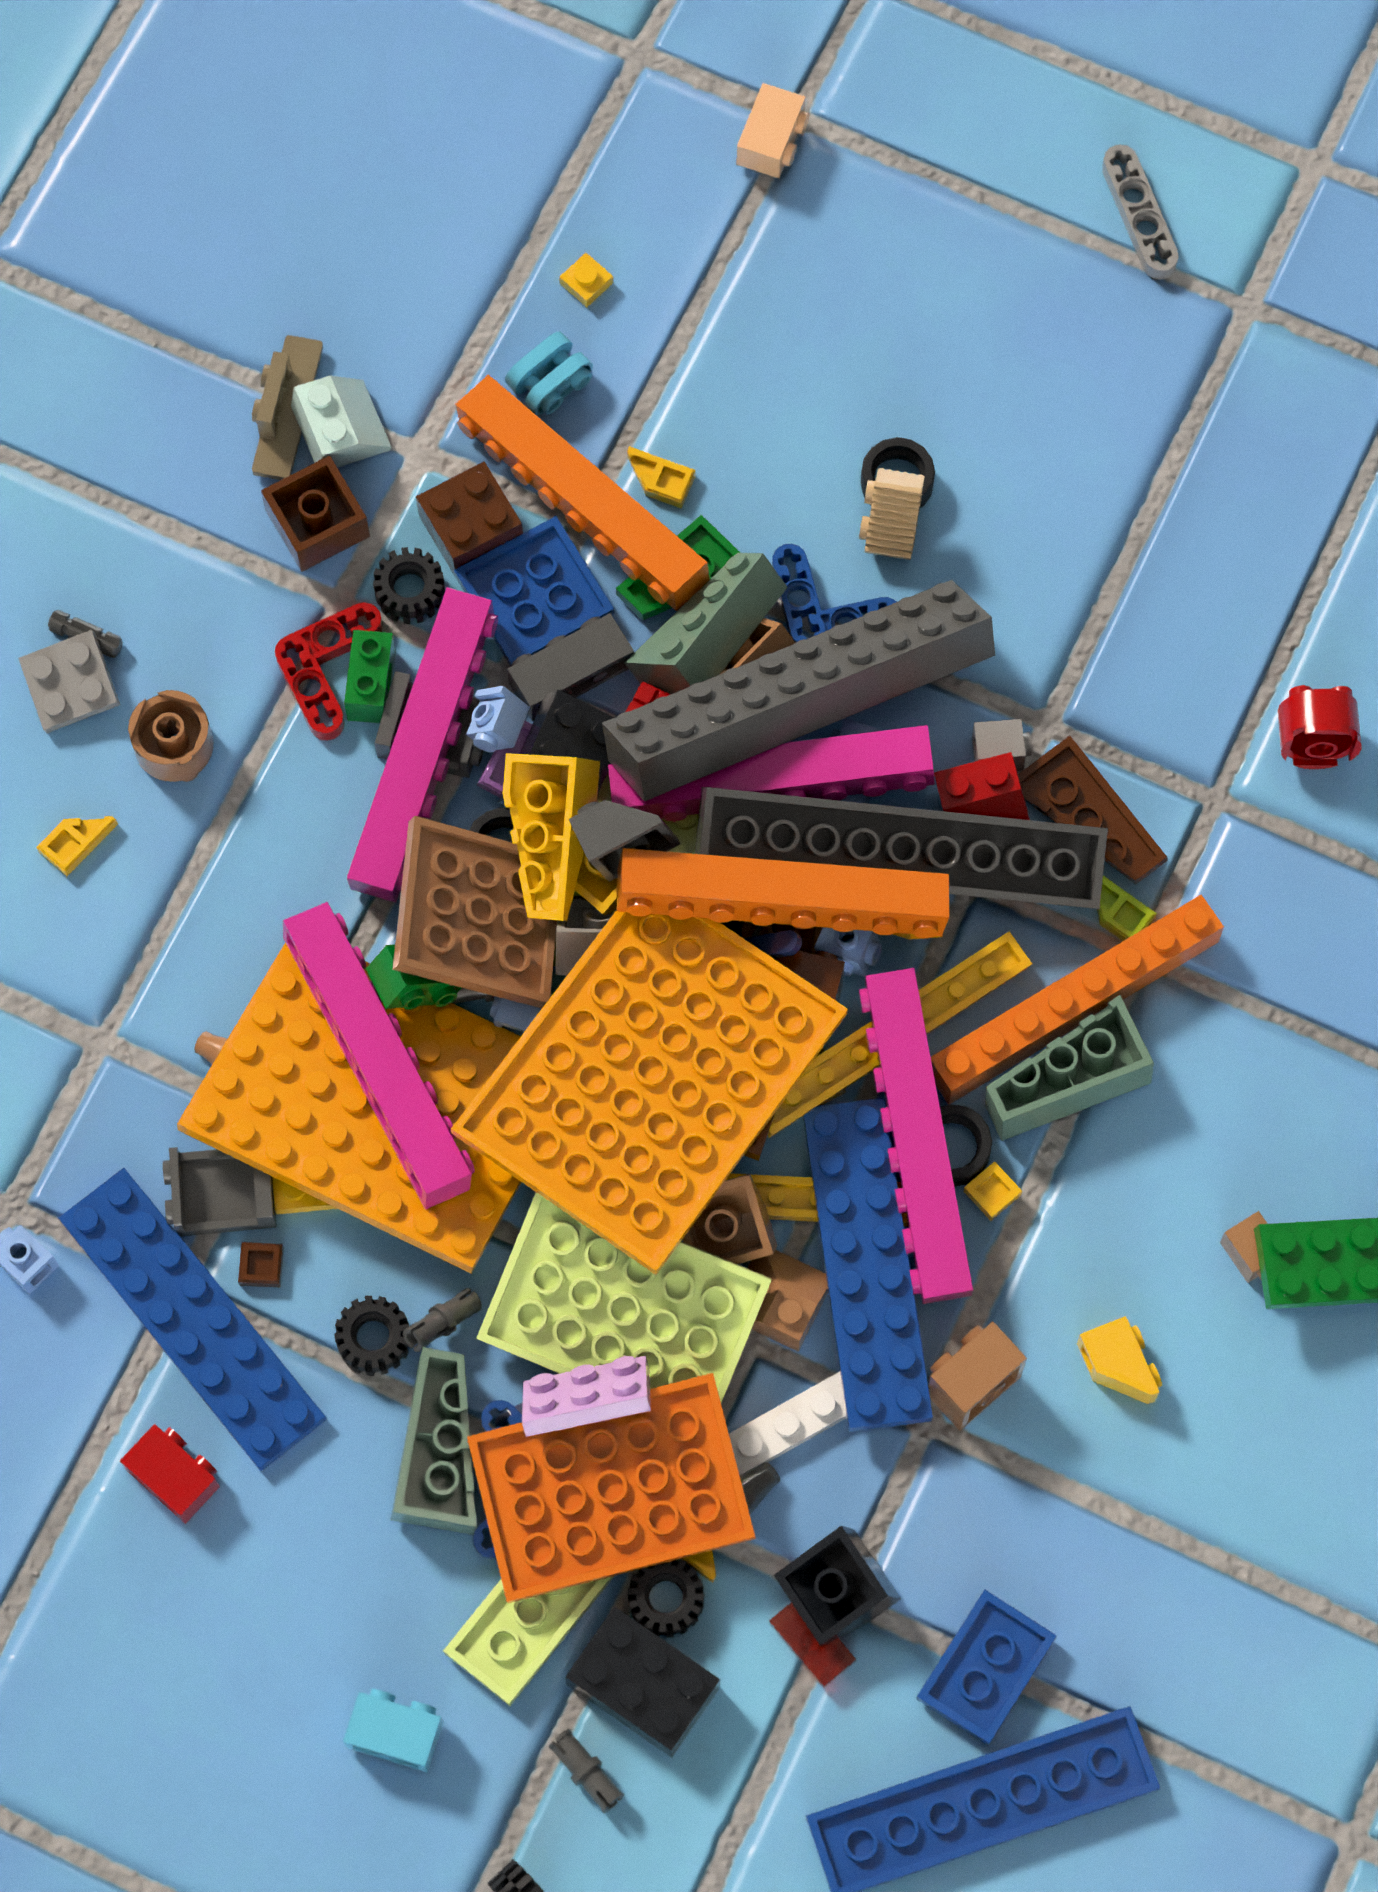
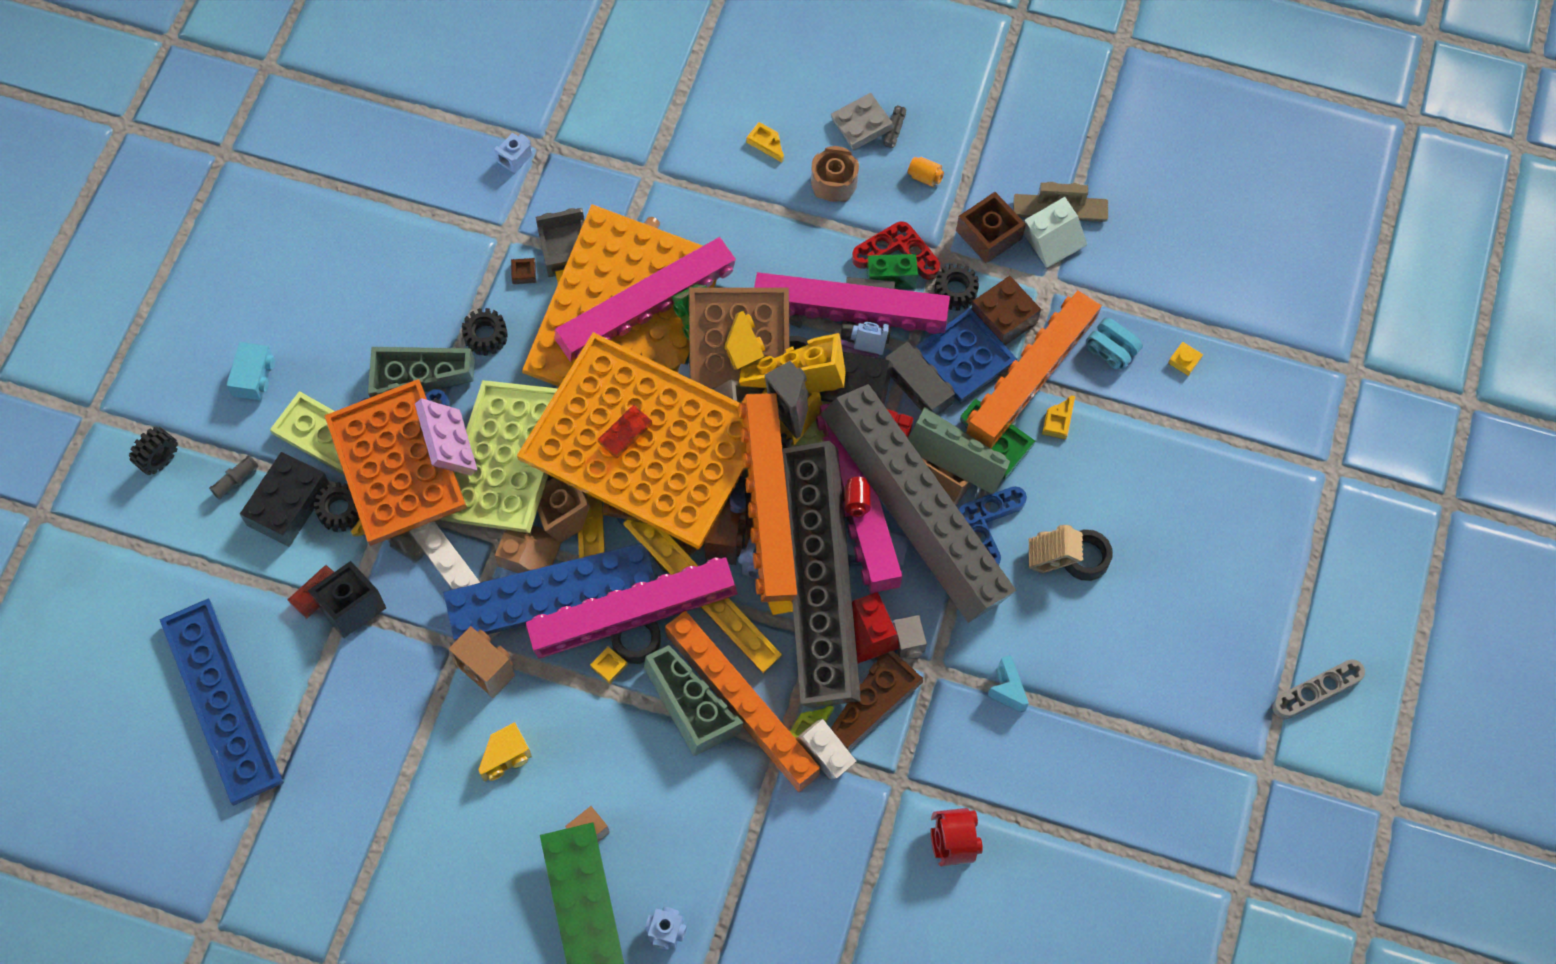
camera: 80 degrees right, 5 degrees down
(171, 1472) = (395, 240): red brick -> none
(185, 597) = (925, 171): none -> light orange brick
(192, 1319) = (486, 242): blue plate -> none
(442, 1319) = (494, 363): dark grey pin -> none
(500, 903) = (741, 342): none -> yellow slope
(644, 1093) = (625, 431): none -> clear red plate
(771, 131) = (1315, 448): light nougat brick -> none
(793, 767) = (857, 496): none -> red brick
(986, 1667) = (304, 693): blue plate -> none
(1100, 615) = (1012, 691): none -> medium azure slope
(1168, 885) = (826, 749): none -> white brick

